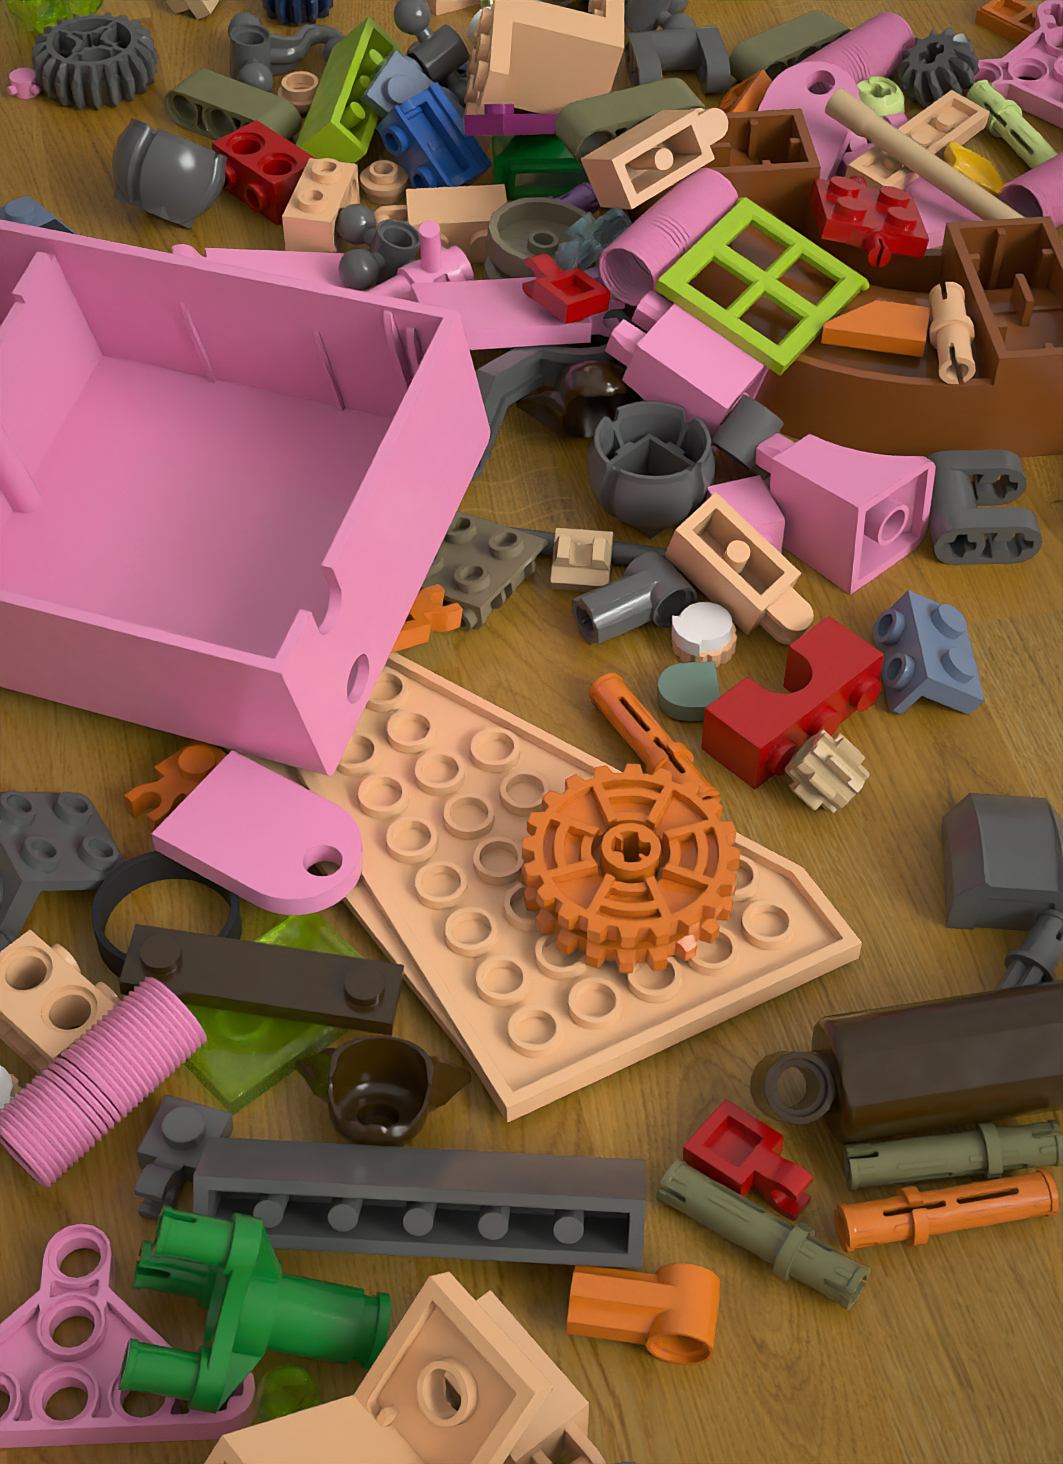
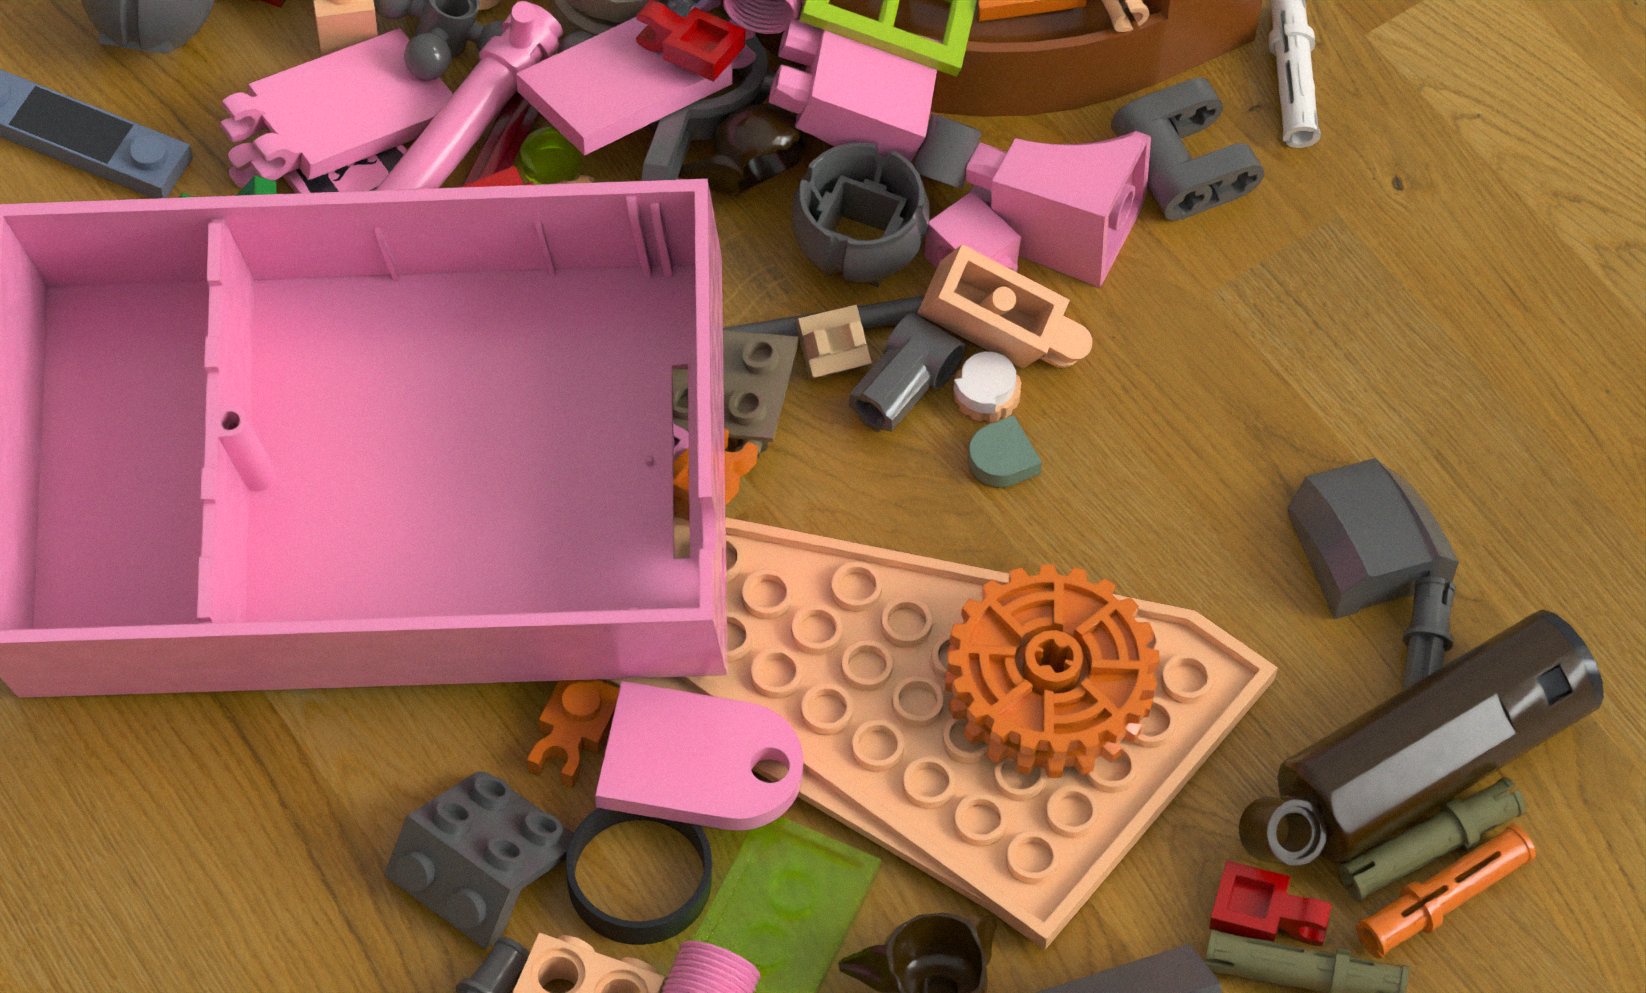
camera: 25 degrees left, 10 degrees up
(266, 979) = (773, 899): dark brown plate -> none
(645, 734) = (1018, 540): orange pin -> none
(760, 730) = (1092, 478): red arch -> none
(827, 772) = (1173, 503): tan gear -> none
(926, 655) = (1205, 339): sand blue bracket -> none

